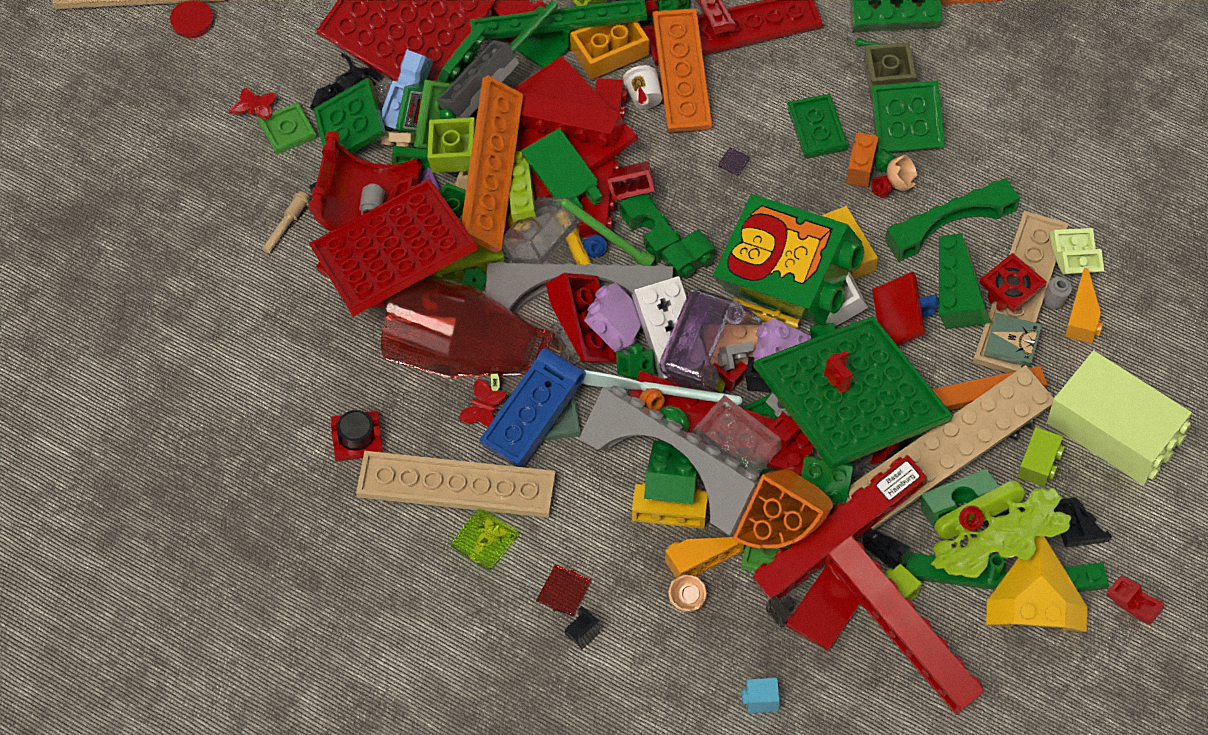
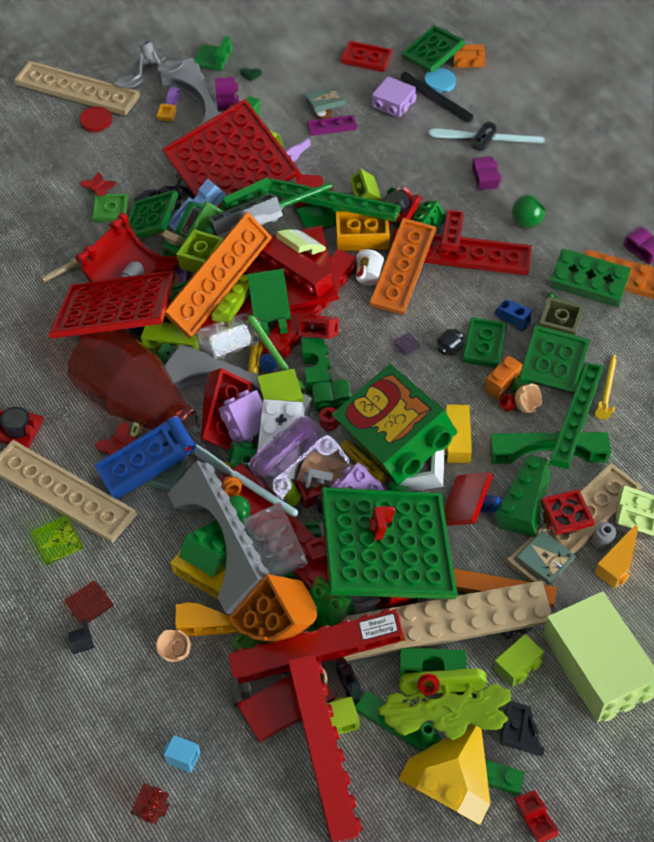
camera: 25 degrees right, 5 degrees down
(554, 86) = (300, 241): none -> yellowish green slope
(633, 269) = (280, 386): none -> lime tile
(701, 274) = (325, 421): none -> red wheel
(782, 141) = (450, 342): none -> black head
(832, 80) = (514, 314): none -> blue leg
(964, 173) = (576, 416): none -> green tile
(985, 155) = (602, 410): none -> yellow piece

